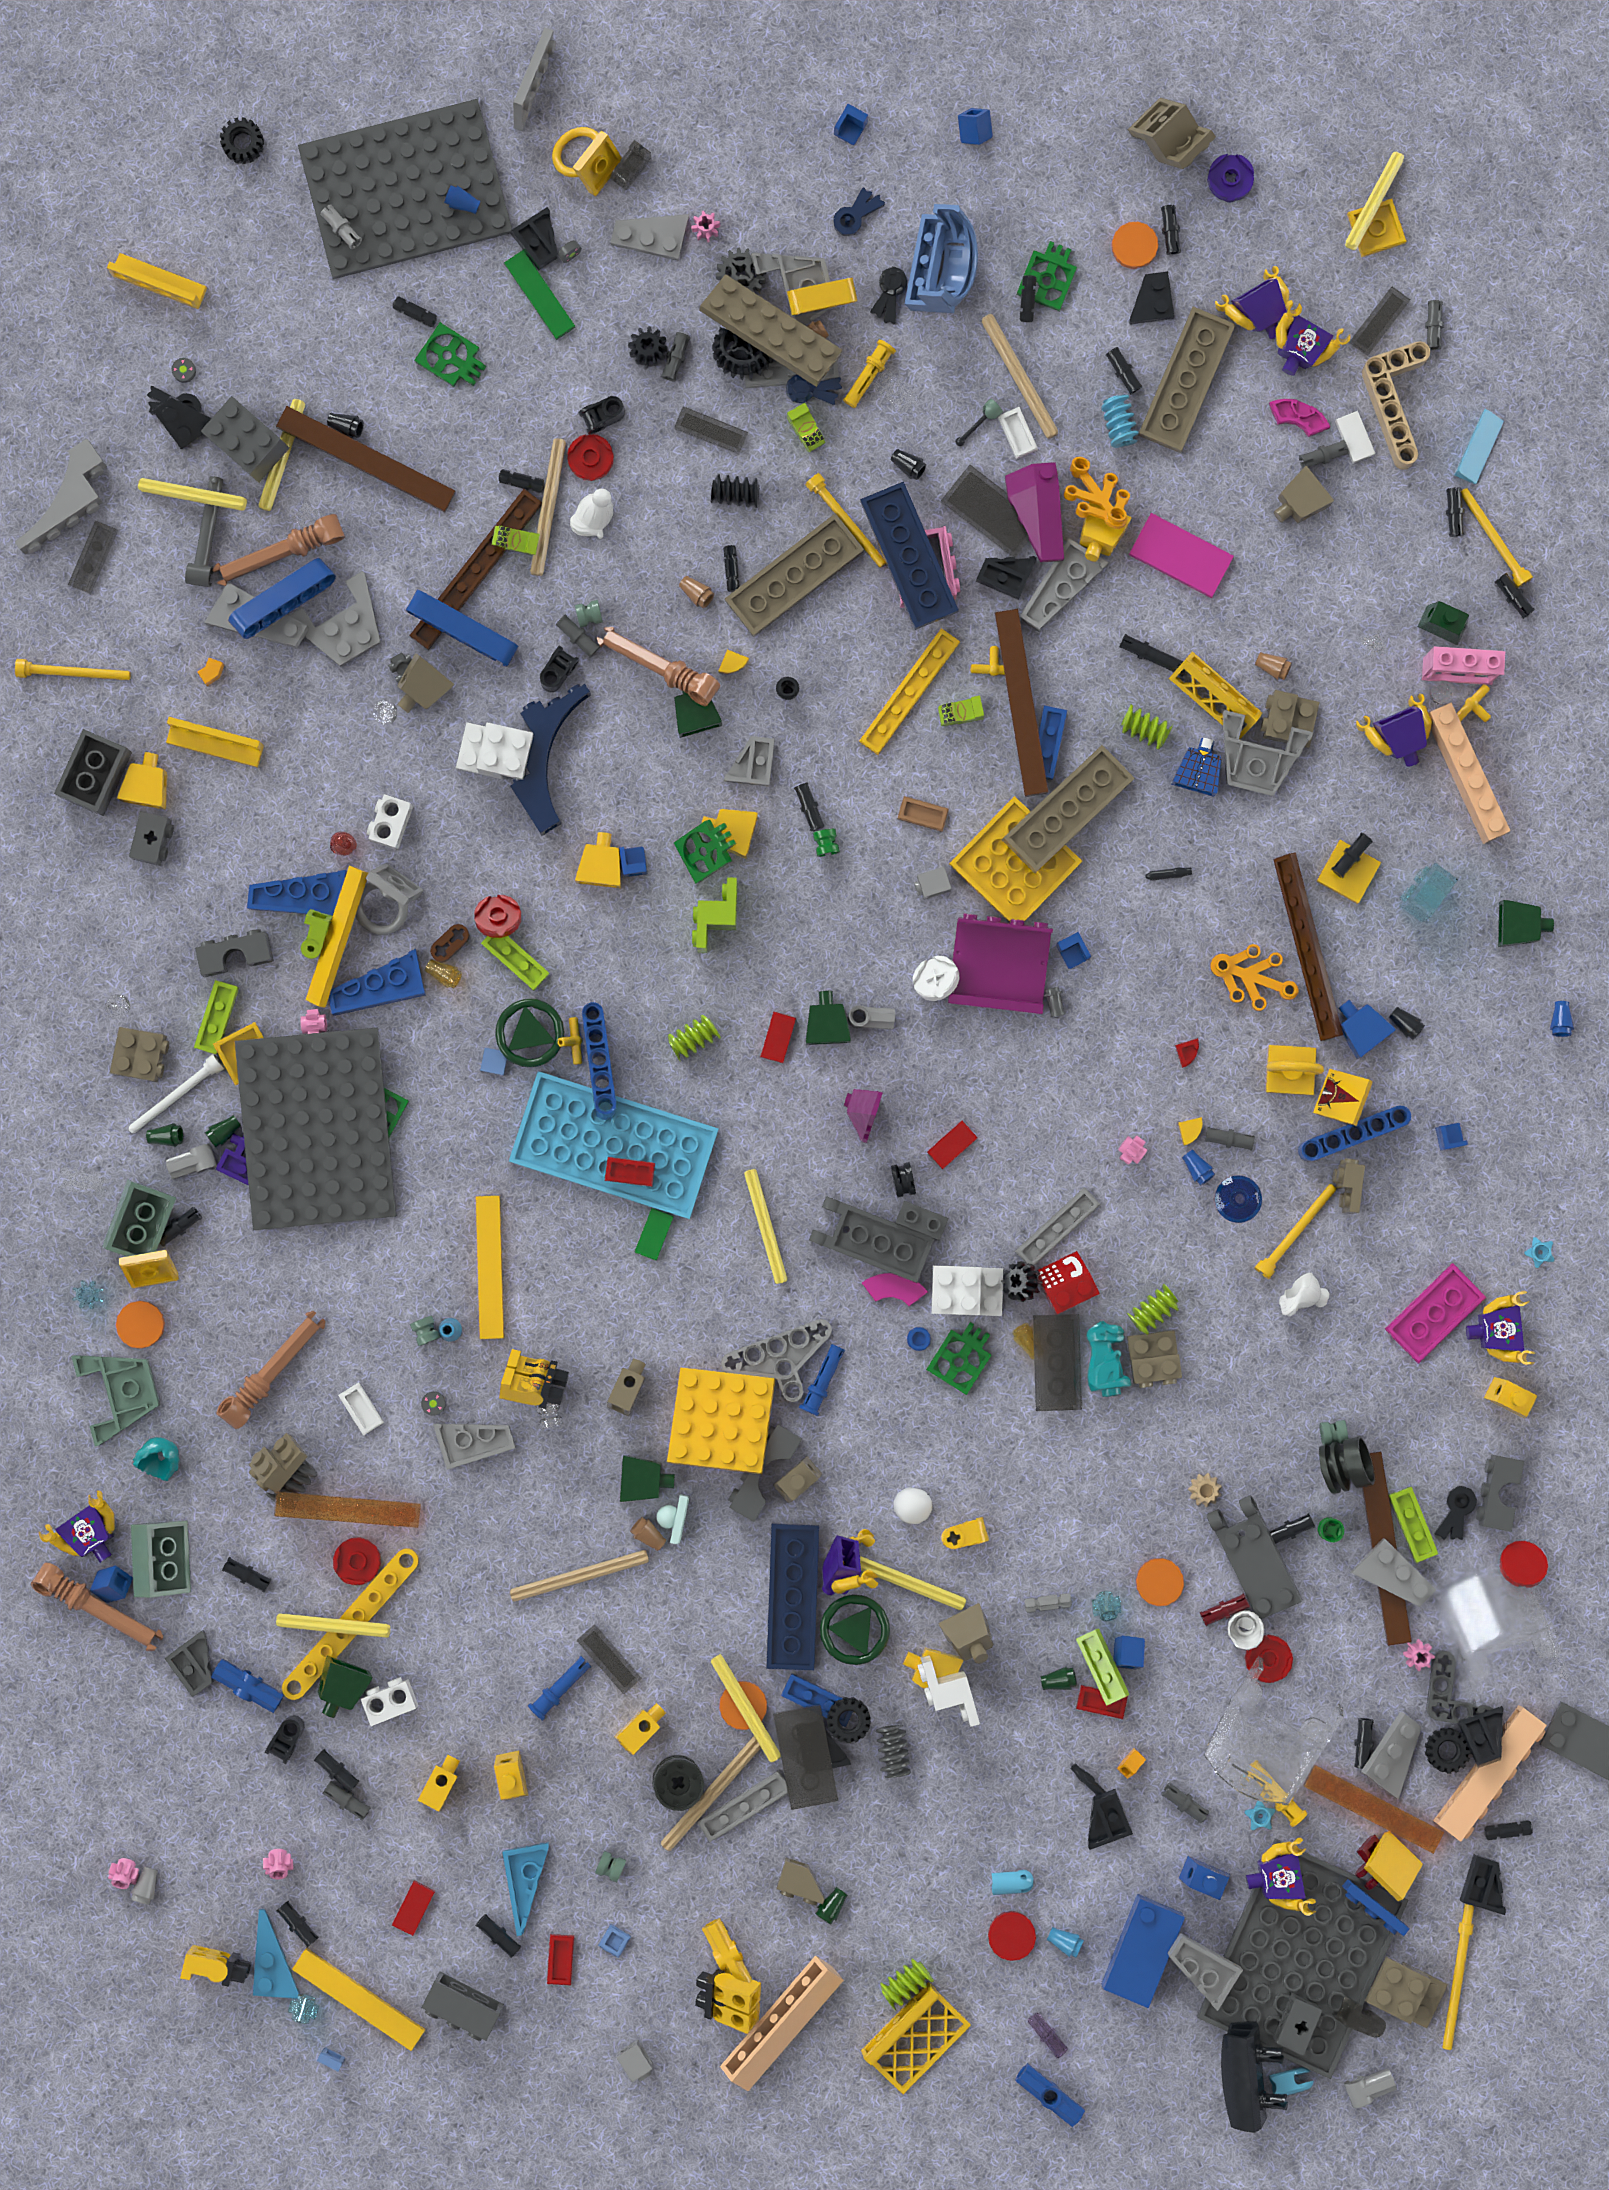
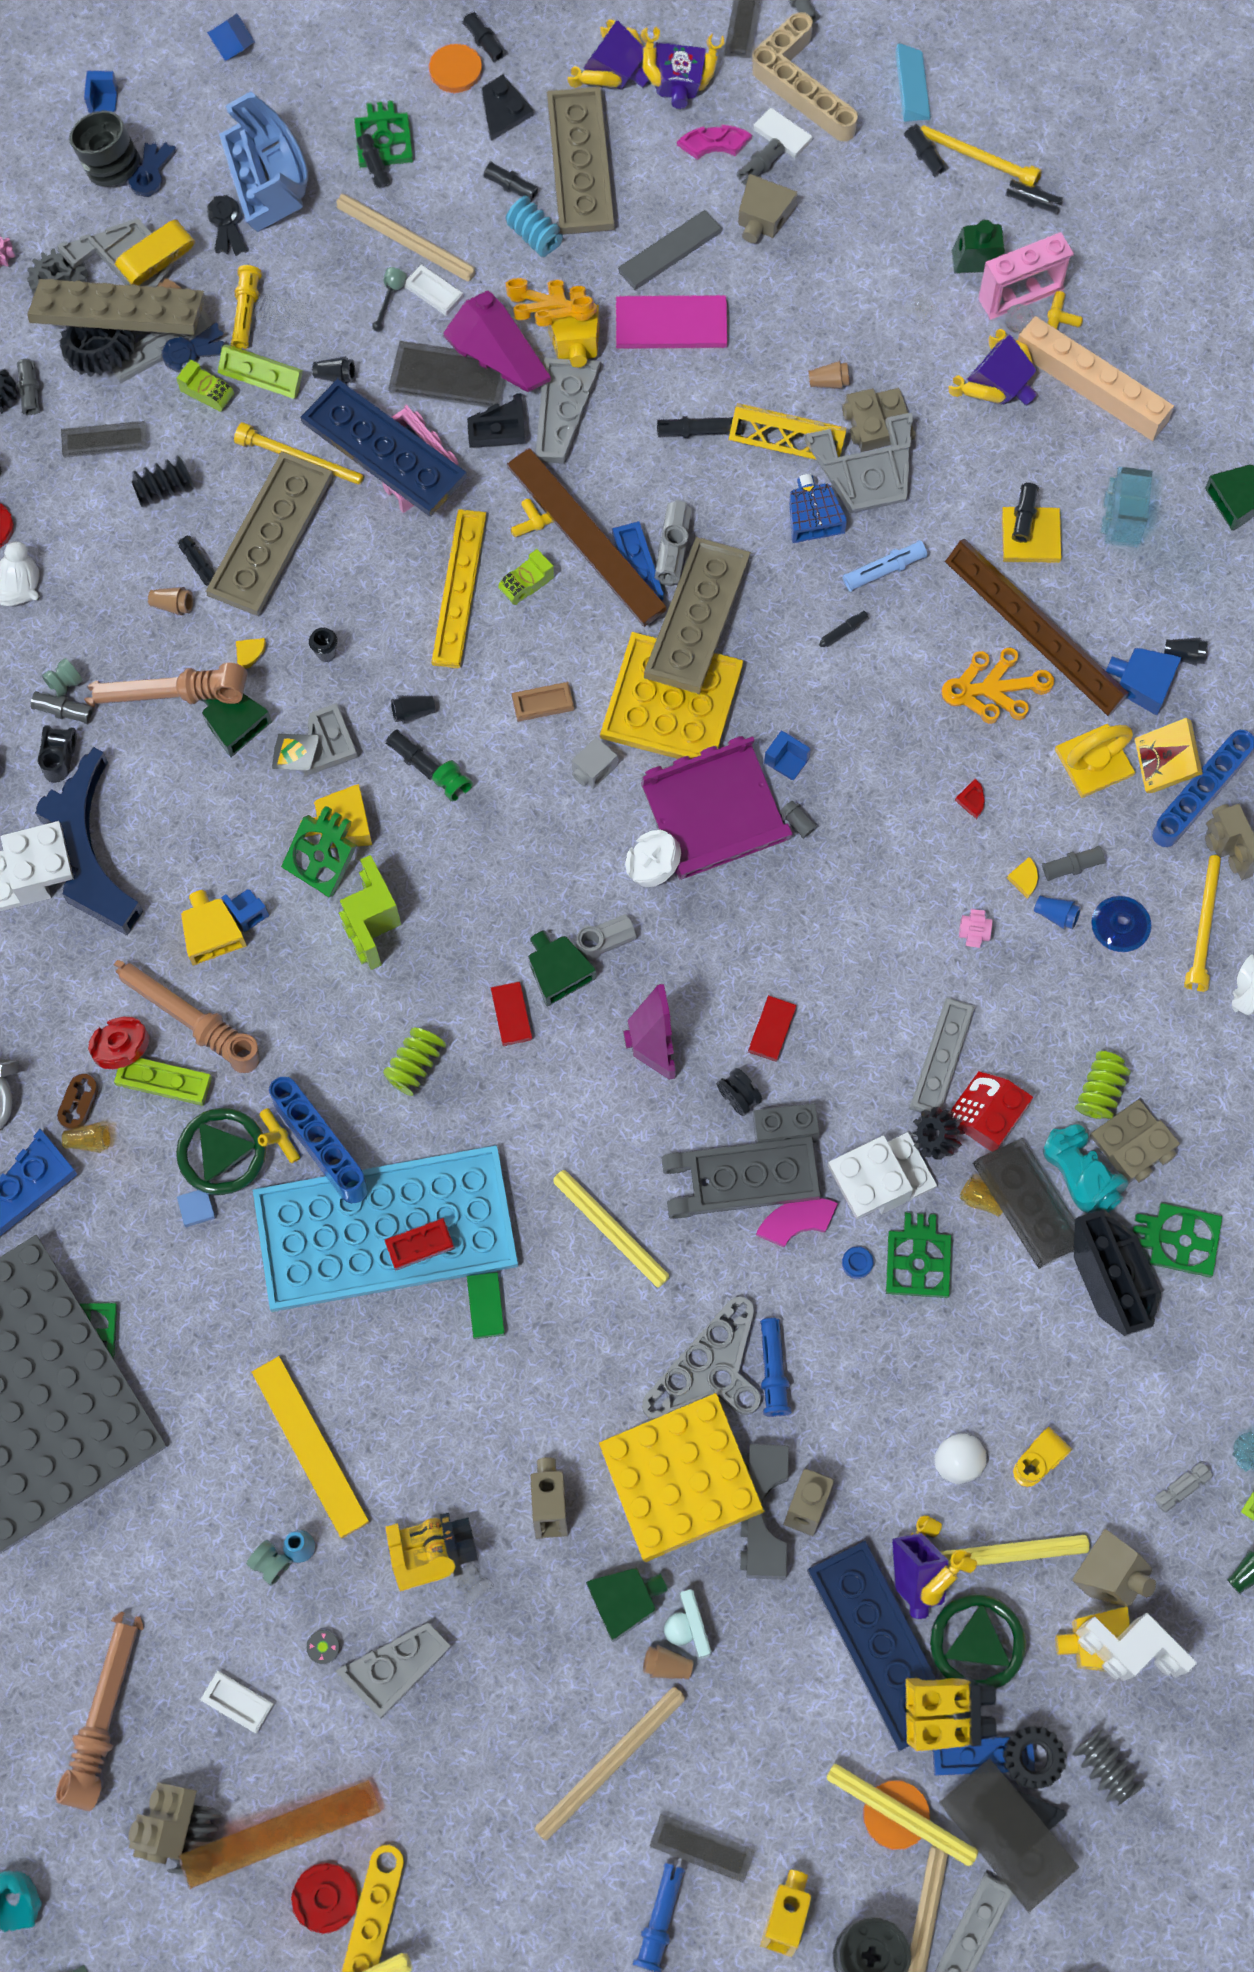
camera: 25 degrees left, 15 degrees down
(563, 937) = (207, 1028): none -> nougat piece
(726, 760) = (294, 751): none -> sticker
(809, 1664) = (948, 1713): none -> yellow hips
(826, 769) = (411, 707): none -> black cone
(828, 182) = (104, 148): none -> pearl dark grey wheel
(852, 436) = (260, 371): none -> lime plate
(1074, 751) = (671, 554): none -> light grey piece
(1086, 1442) = (1115, 1273): none -> black wedge
(1130, 1427) = (1154, 1235): none -> green piece
(1145, 727) = (732, 496): lime piece -> none
(1213, 493) = (669, 250): none -> dark grey tile
(1255, 840) = (894, 561): none -> light blue pin

